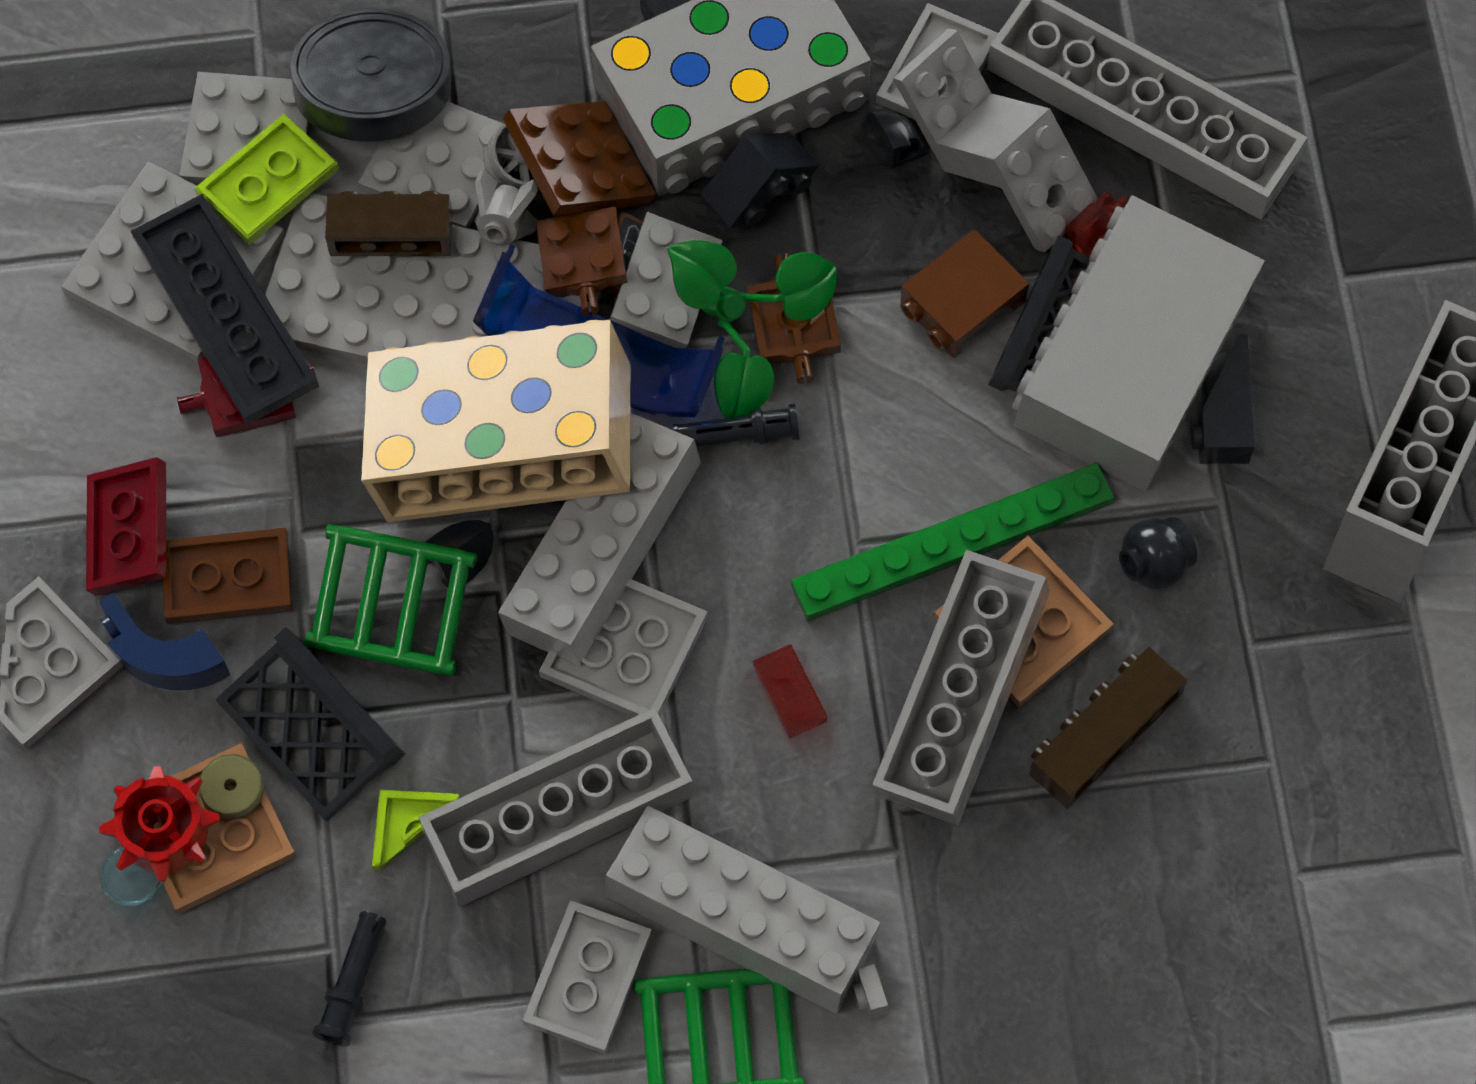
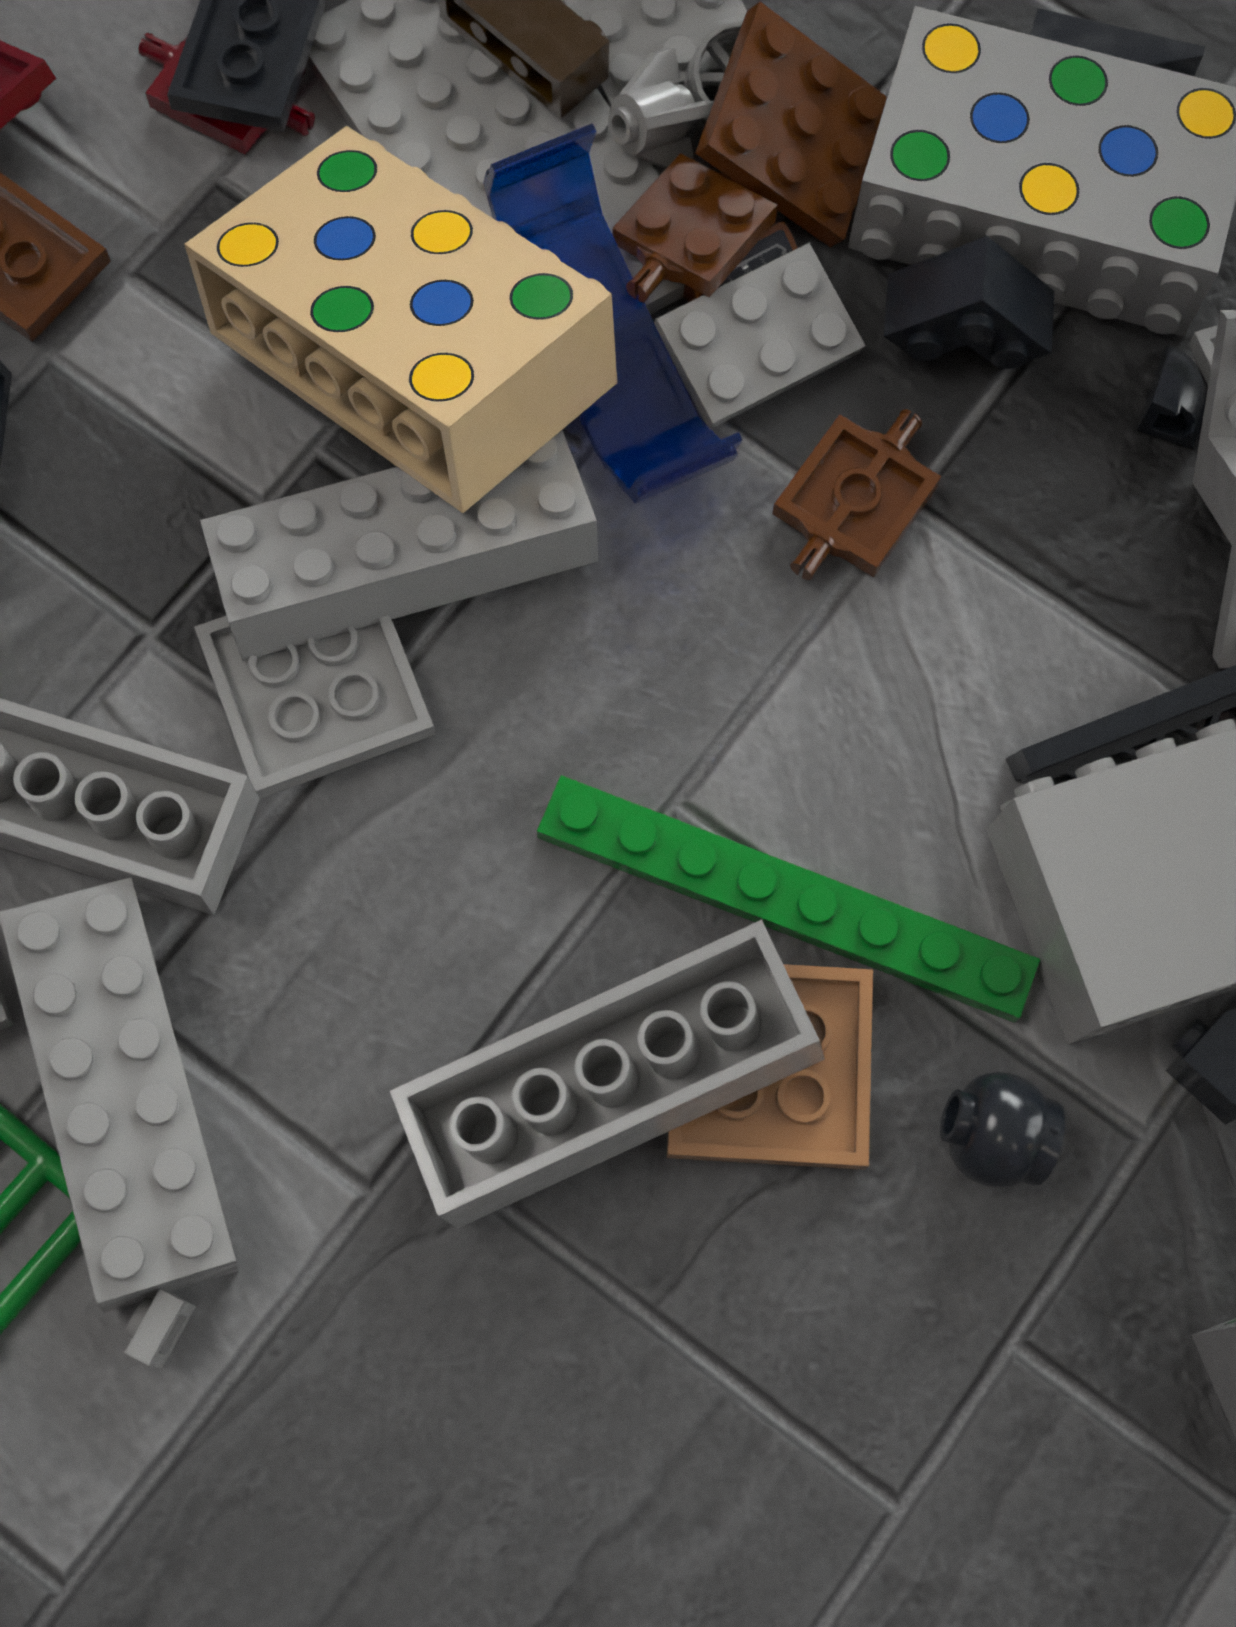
camera: 40 degrees right, 5 degrees up
(420, 554) = (190, 389): green bar -> none
(467, 535) = (249, 429): black brick -> none
(700, 280) = (777, 347): green plant -> none
(757, 426) = (702, 570): black pin -> none
(790, 691) = (435, 897): clear red plate -> none
(962, 292) = (1075, 627): reddish brown panel -> none
(1107, 726) = (742, 1279): dark brown brick -> none

